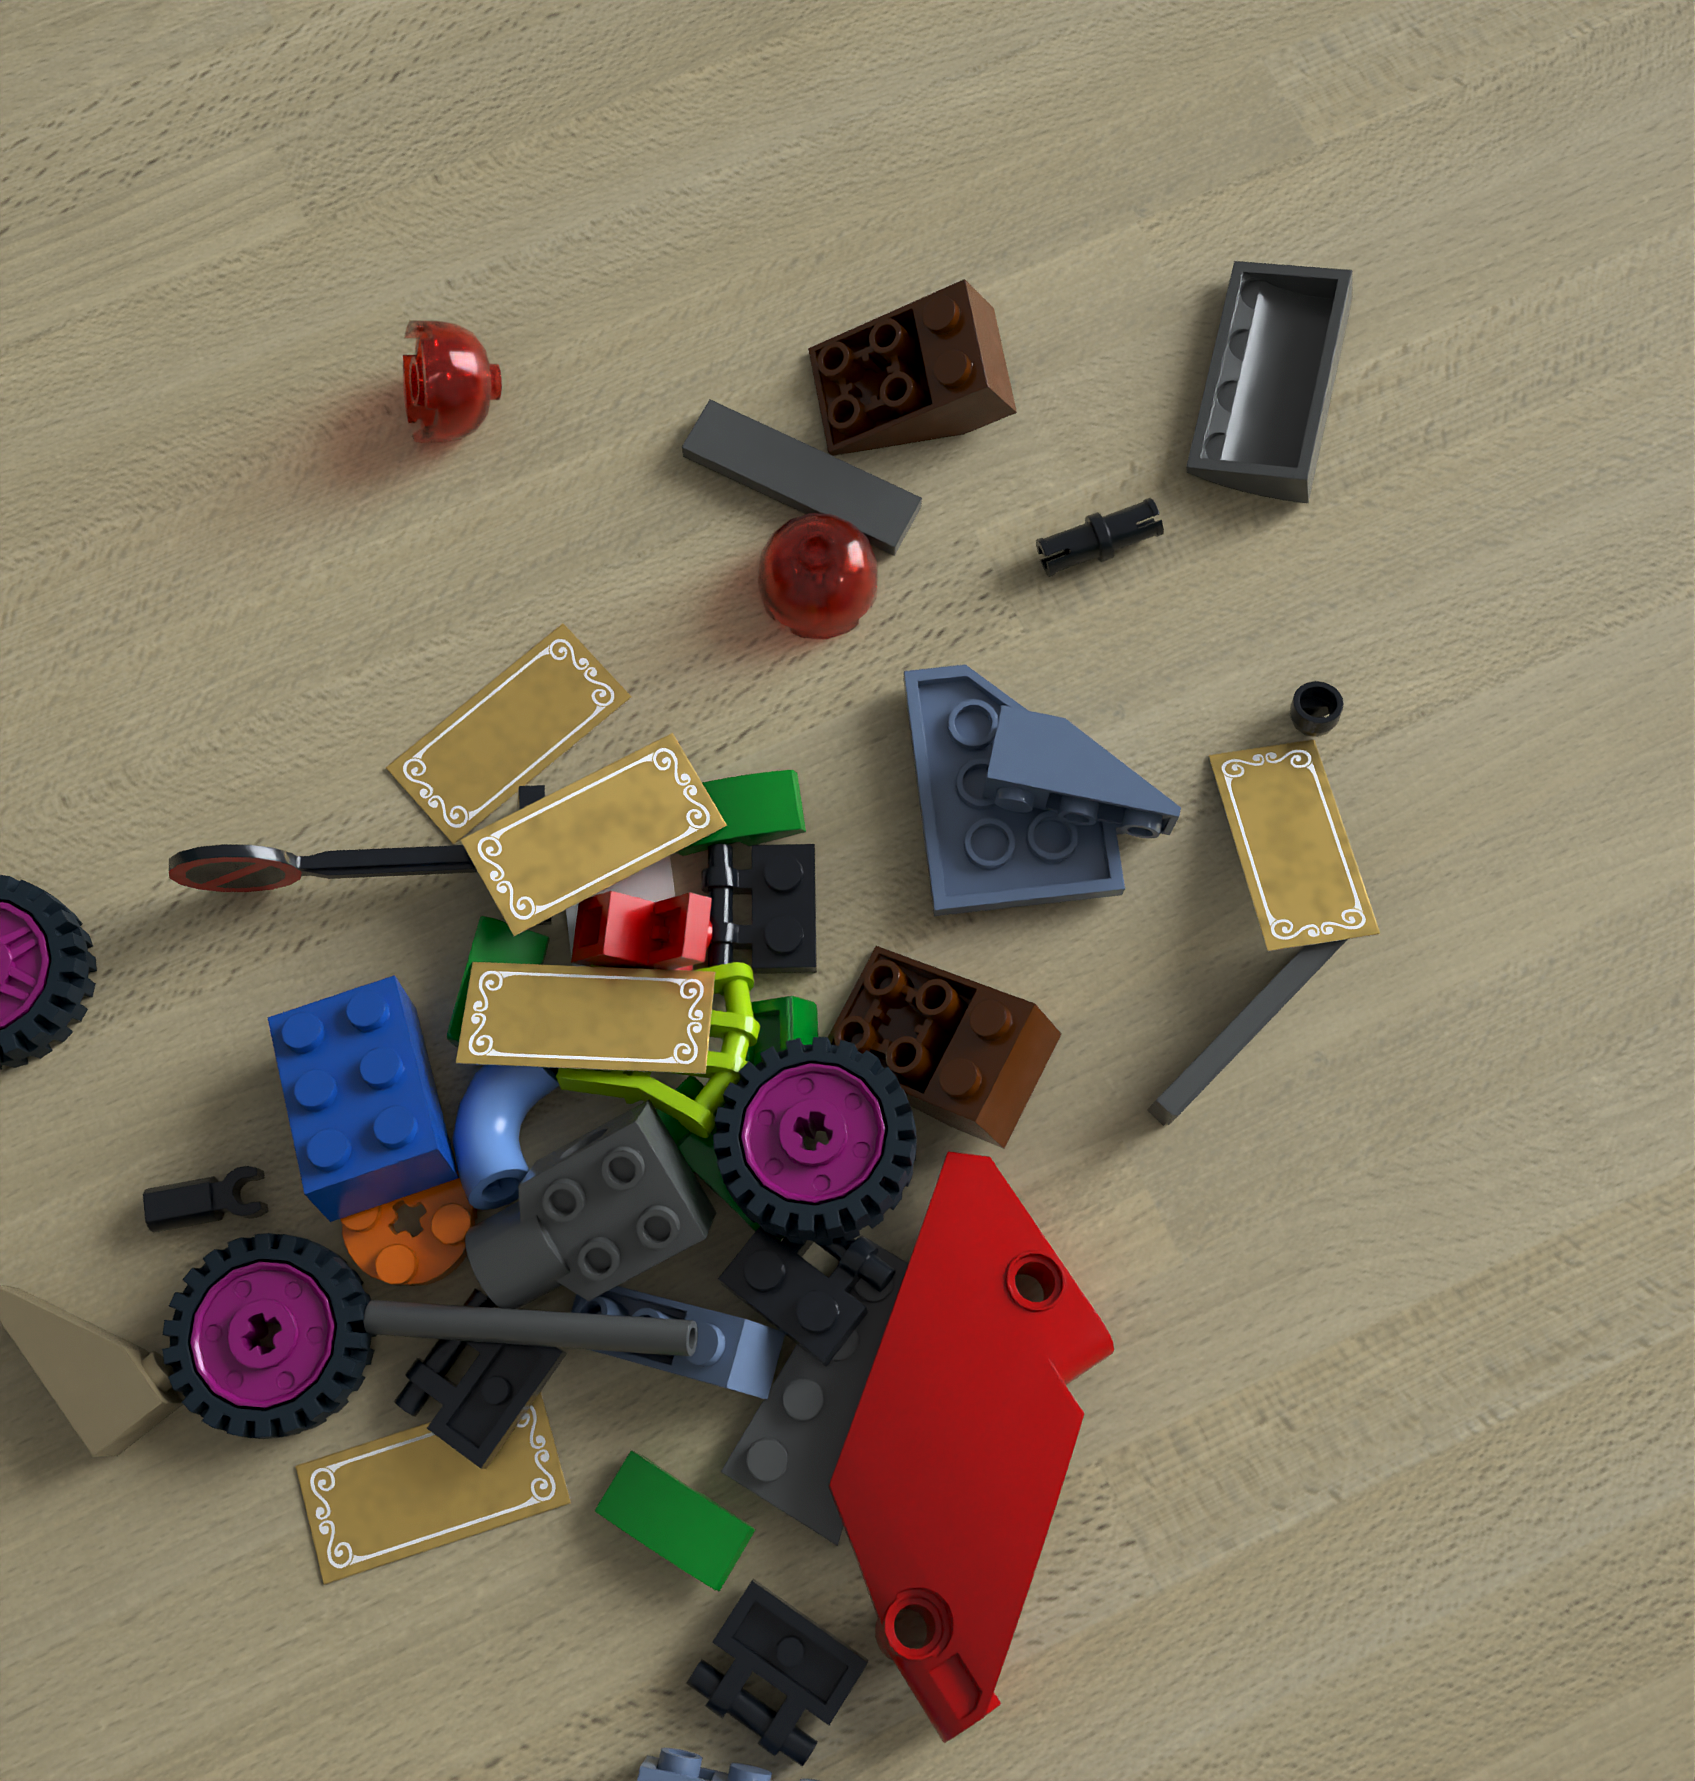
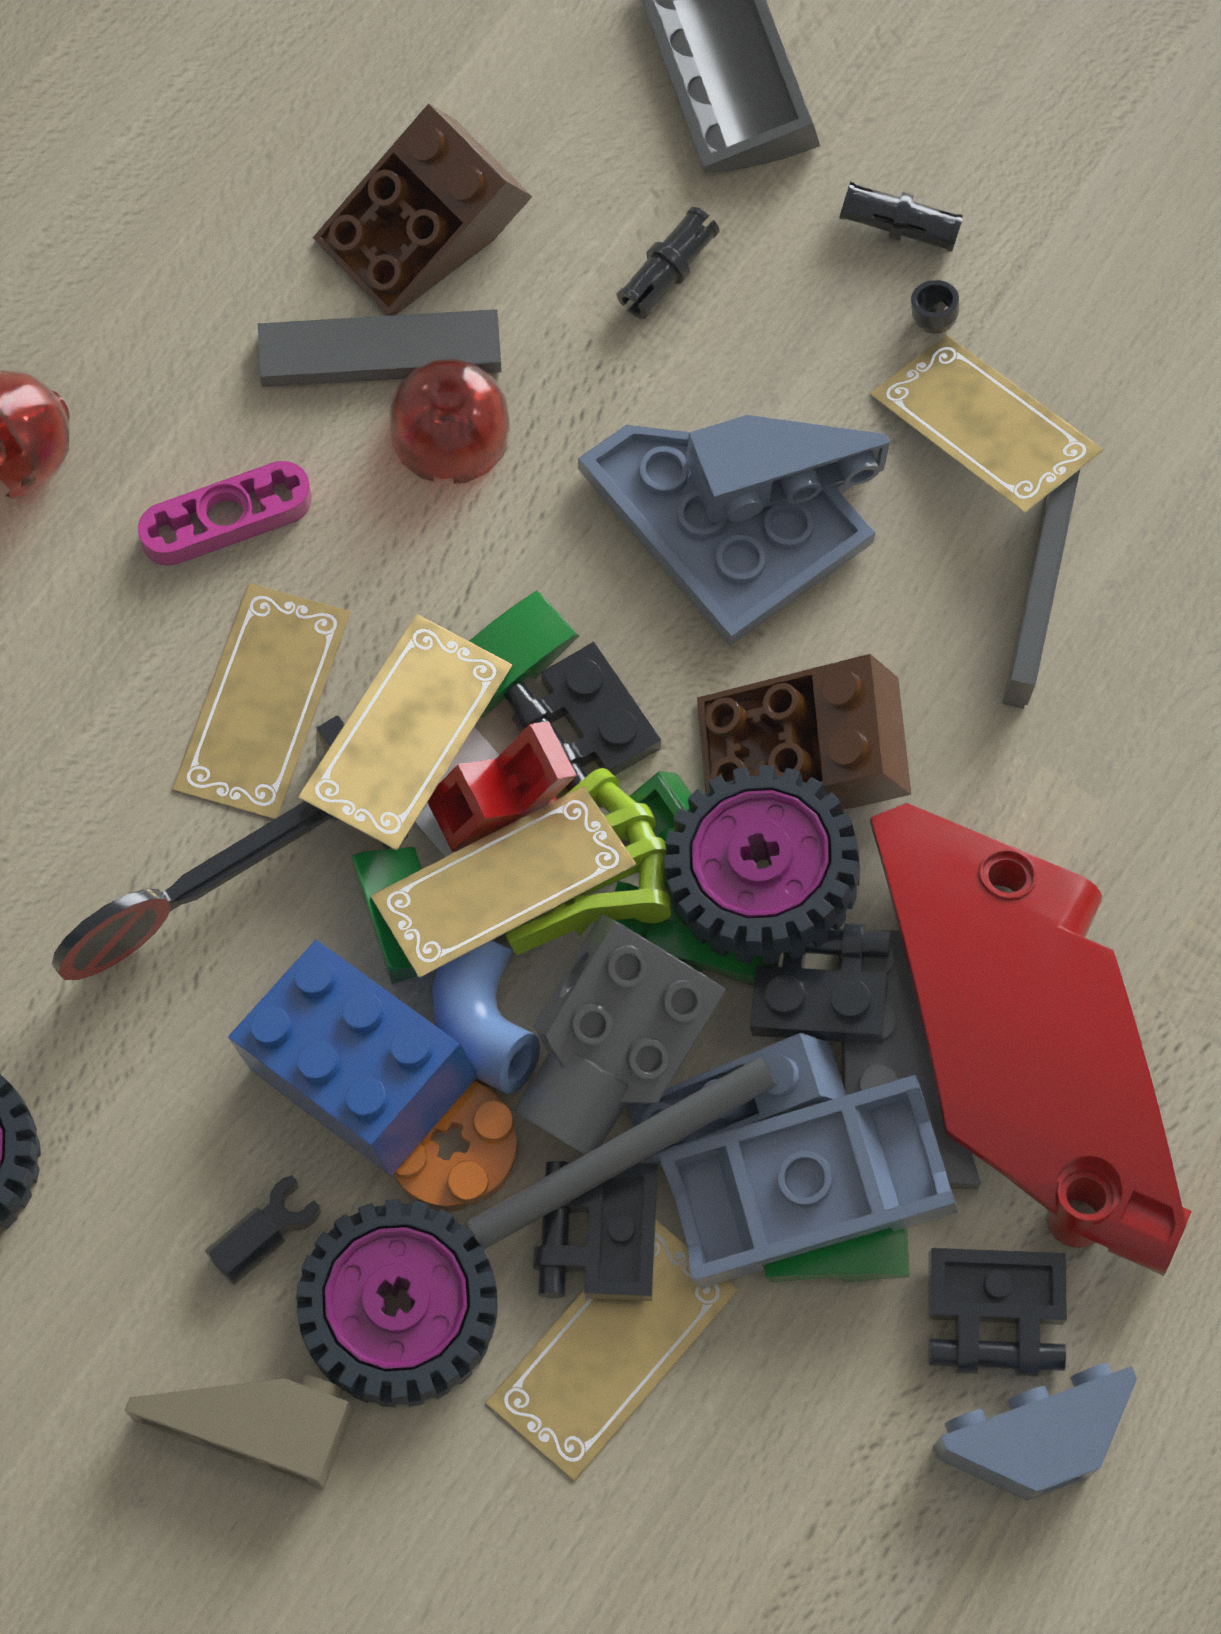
camera: 35 degrees left, 5 degrees down
(533, 561) = (272, 516): none -> dark pink beam
(679, 1457) = (808, 1180): none -> sand blue piece
(1338, 608) = (901, 216): none -> black pin

